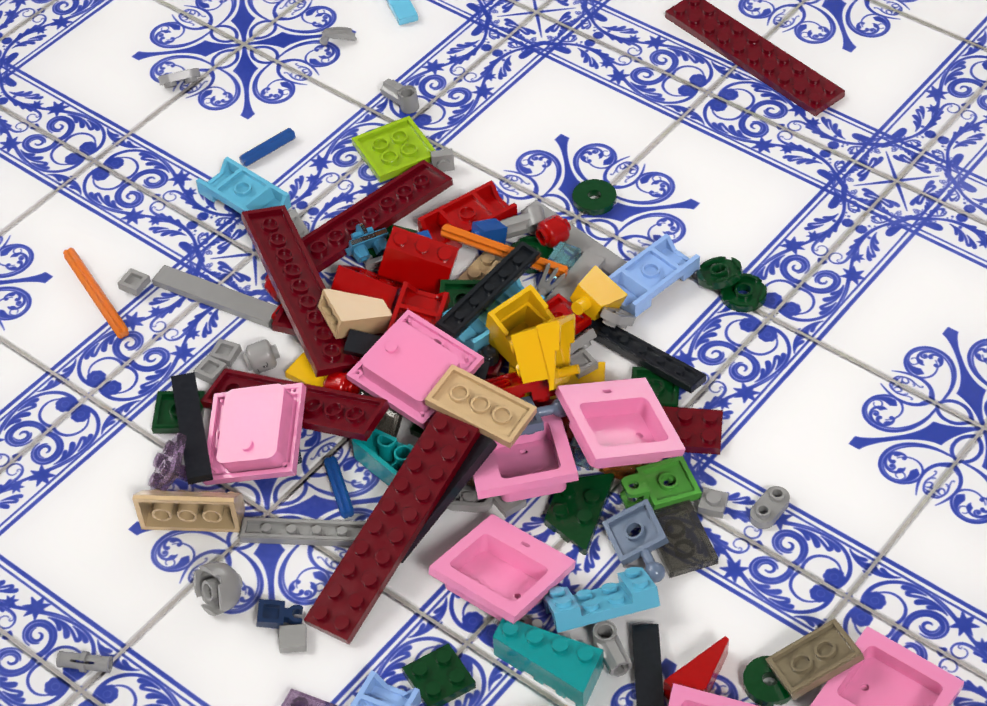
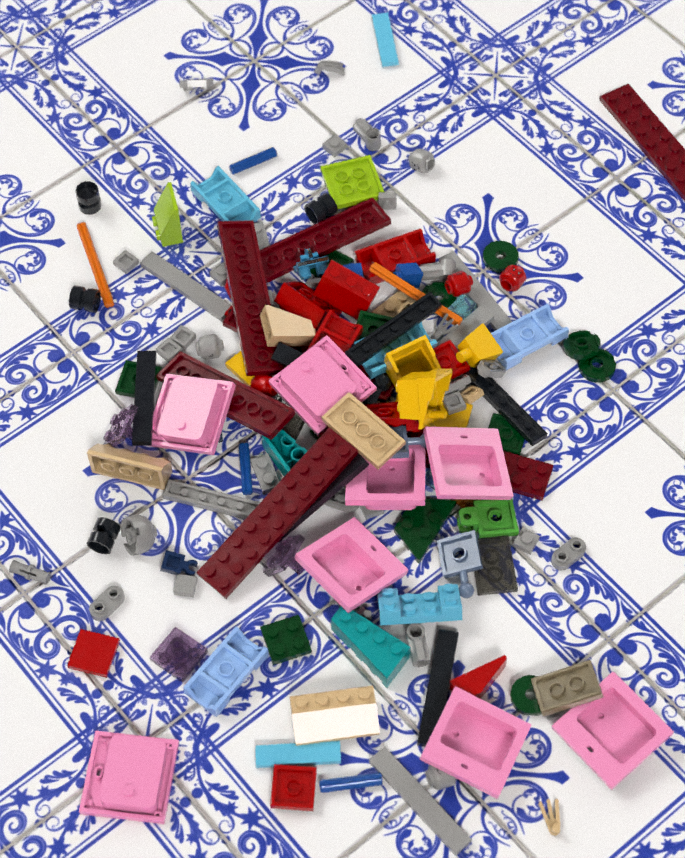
camera: 10 degrees right, 10 degrees up
(72, 219) = (88, 197): none -> black wheel
(87, 331) = (80, 299): none -> black wheel
(173, 598) = (103, 536): none -> black wheel
(177, 221) = (167, 218): none -> lime slope
(196, 678) = (108, 603): none -> light grey plate
(255, 275) = (219, 274): none -> light grey plate
(363, 115) = (334, 146): none -> light grey plate
(364, 182) = (320, 209): none -> black wheel
(364, 487) = (264, 473): none -> light grey plate
(415, 576) = (285, 556): none -> clear purple plate
(472, 111) = (421, 160): none -> light grey head
(601, 350) = (471, 394): none -> tan tile
(616, 215) = (512, 278): none -> red head

